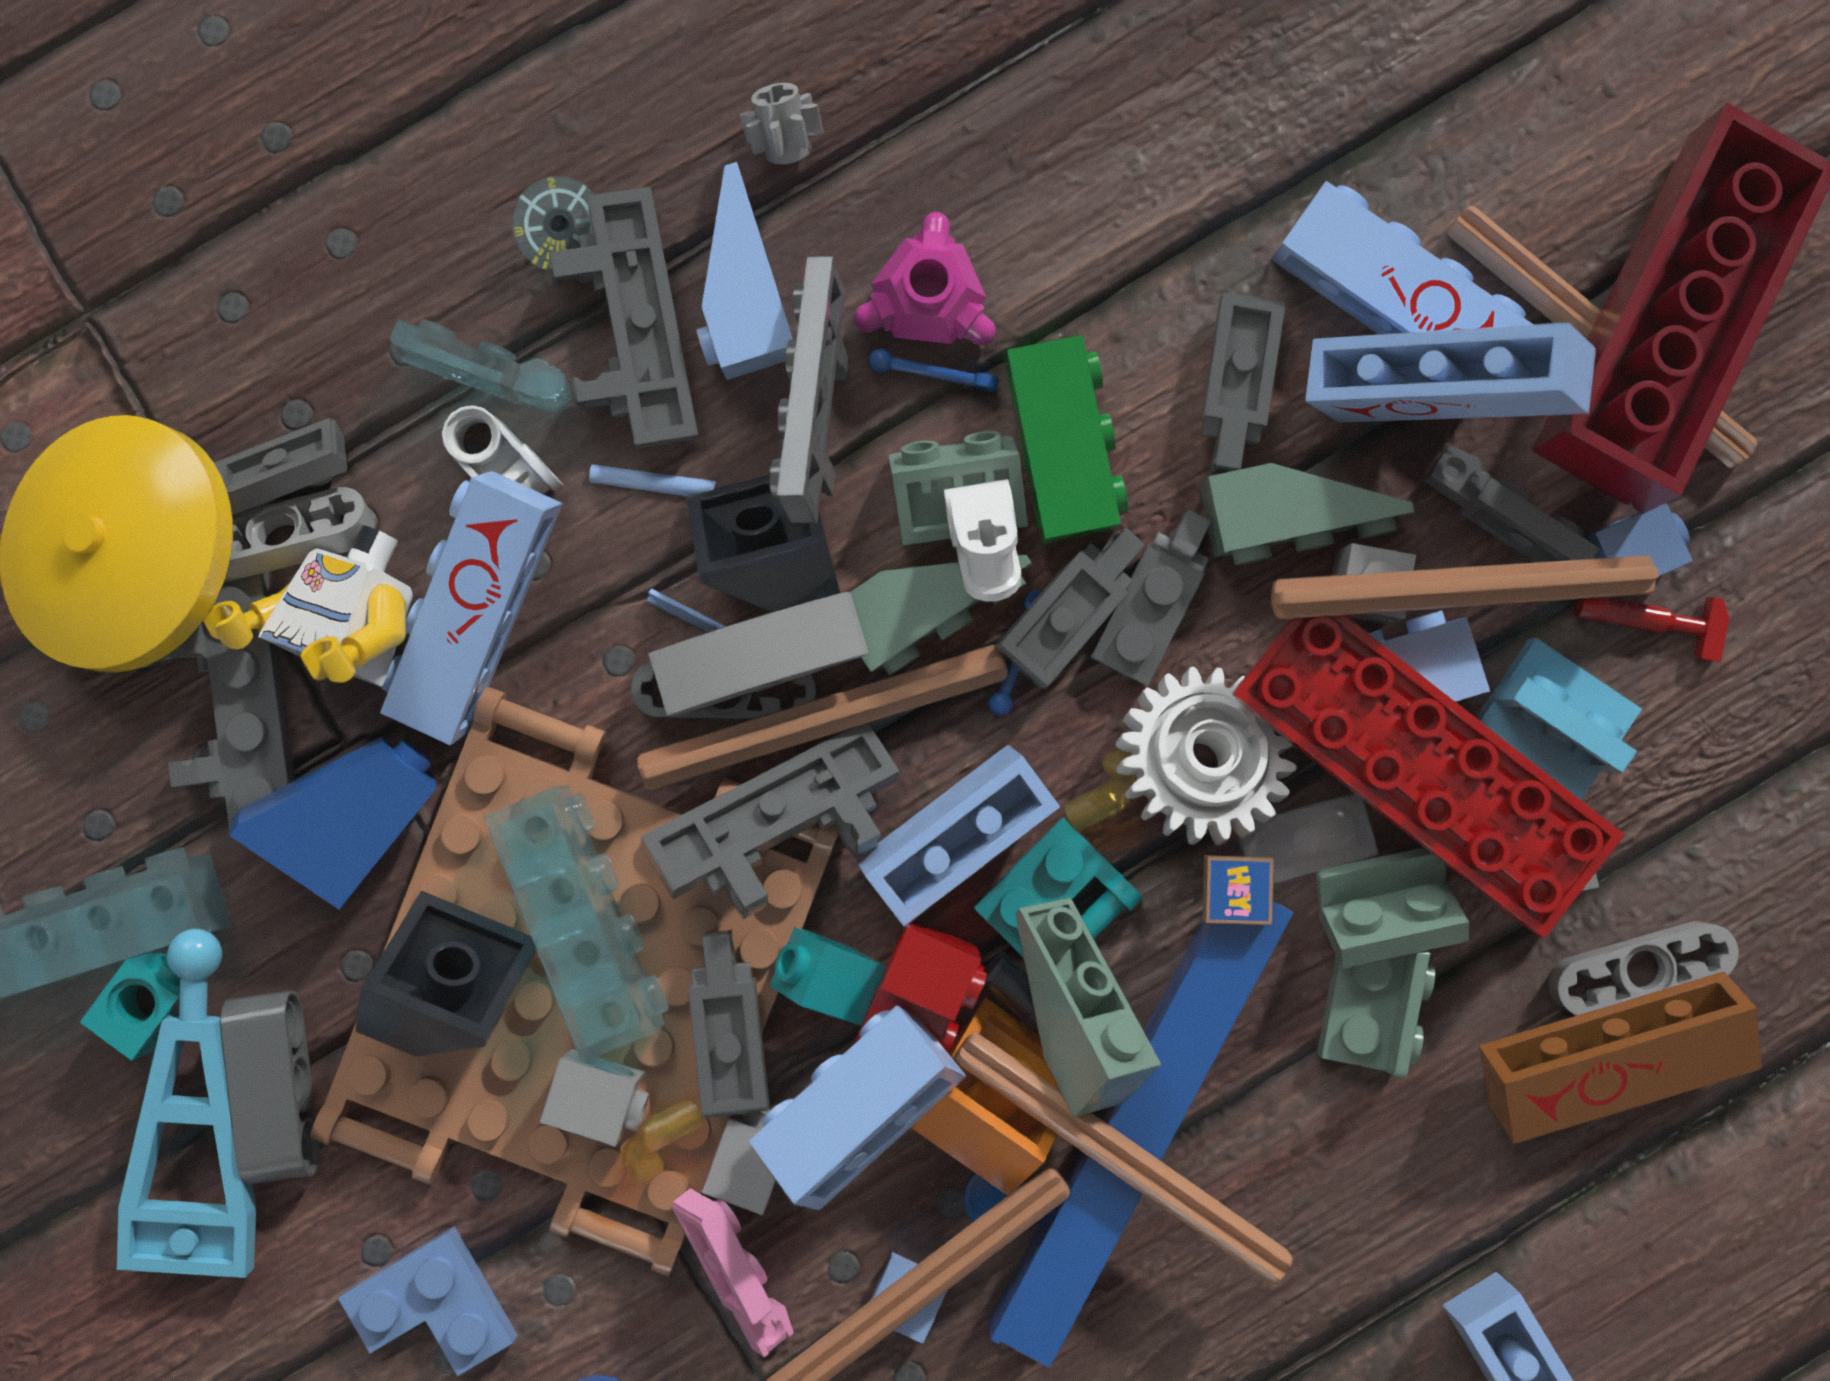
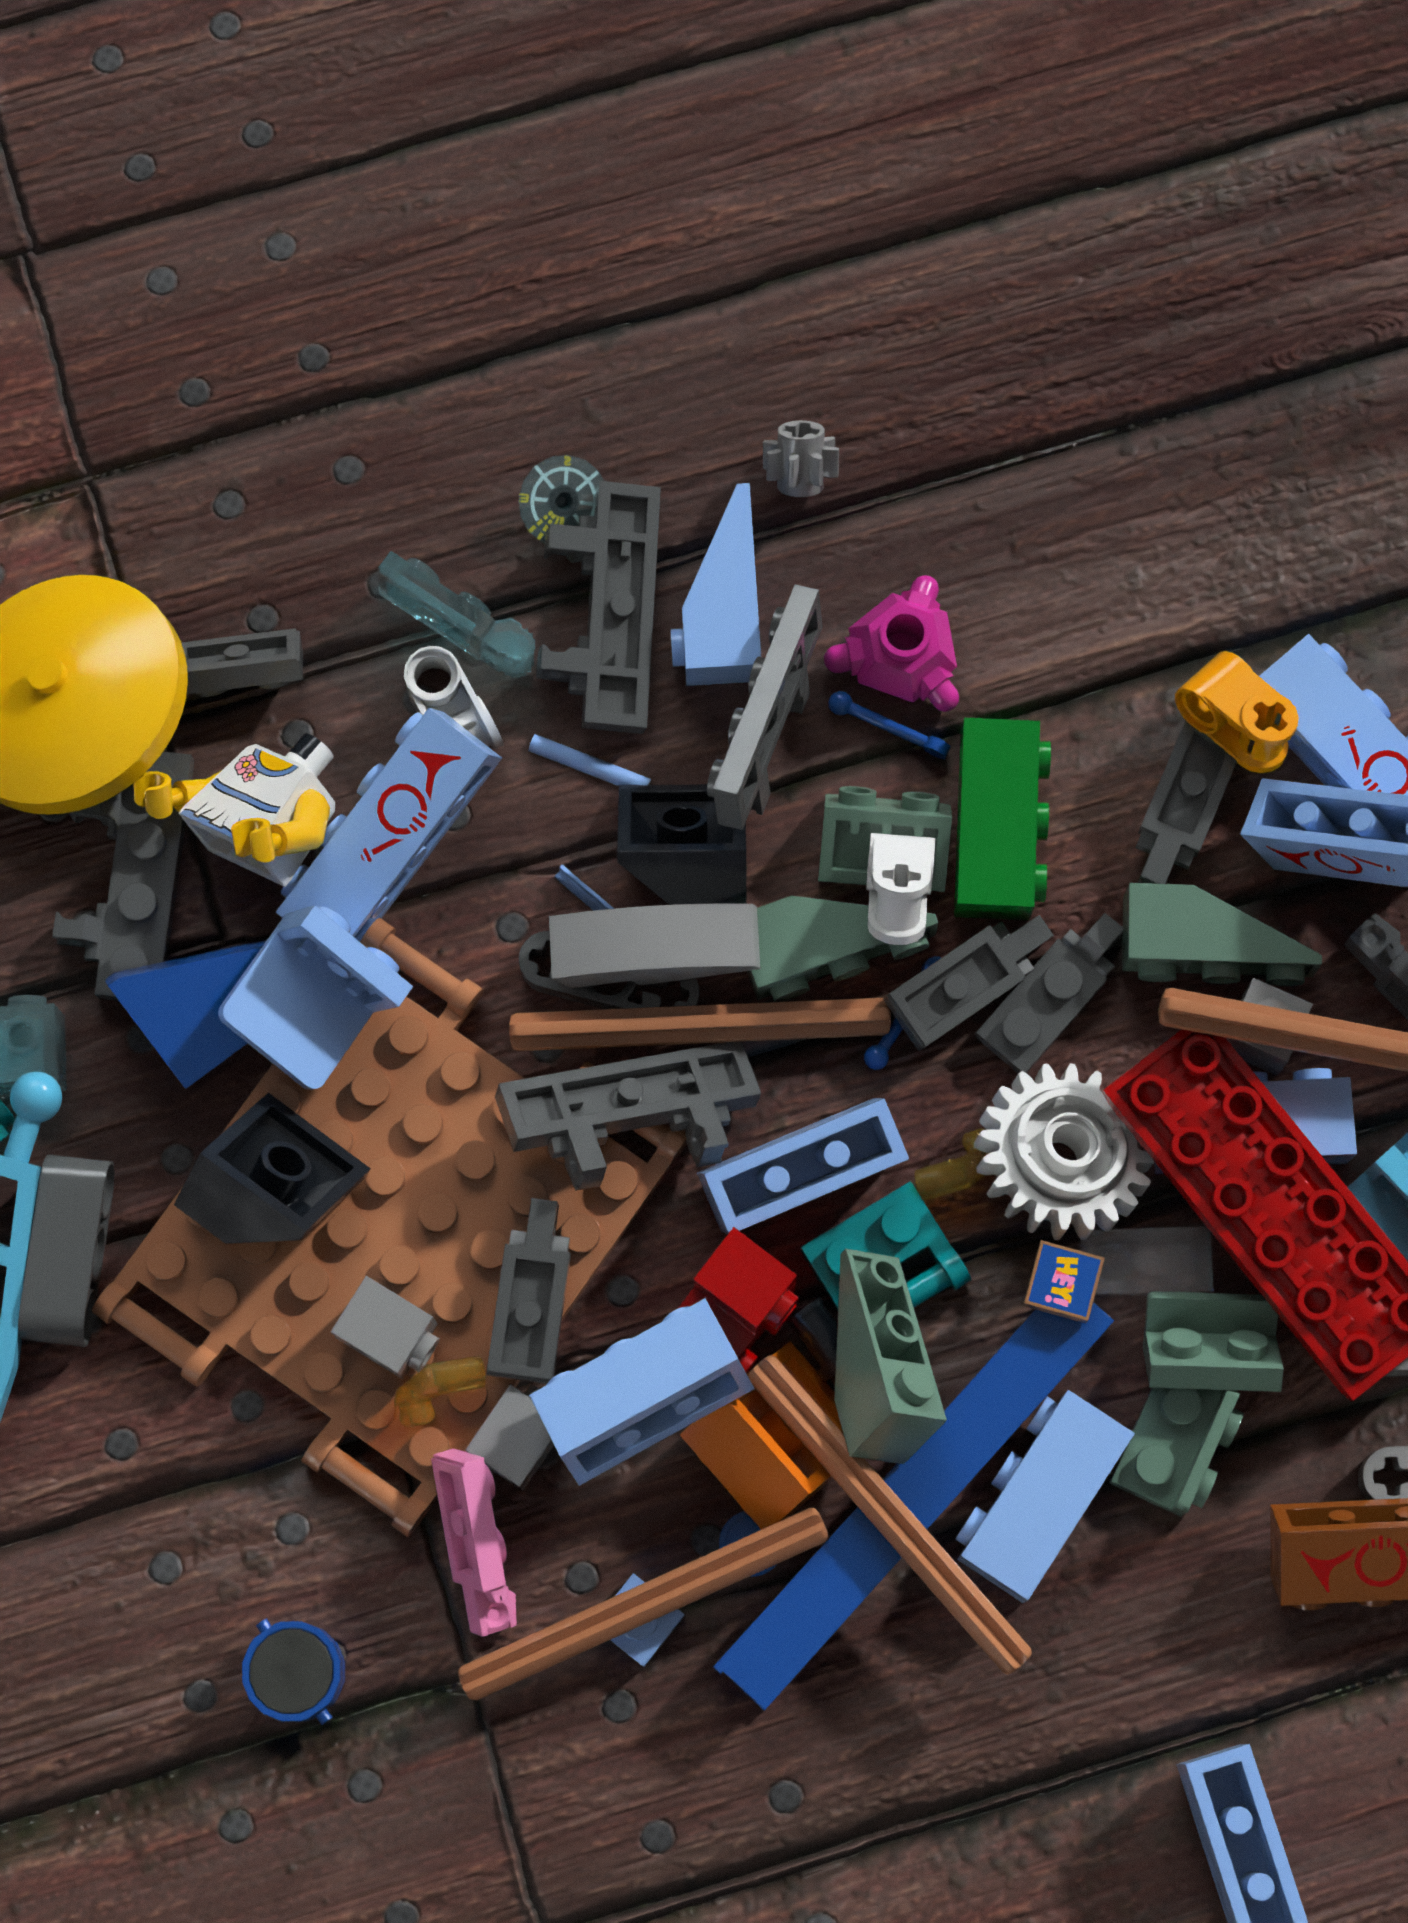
camera: 15 degrees right, 10 degrees down
(318, 509) = (262, 709): light grey beam -> none
(431, 793) = (311, 994): none -> light blue bracket
(435, 1286) = (176, 1491): medium blue plate -> none
(576, 921) = (413, 1155): clear light blue brick -> none
(827, 976) = (640, 1271): teal brick -> none
(1261, 1091) = (1042, 1494): none -> light blue brick
(1273, 273) = (1237, 707): none -> light orange piece

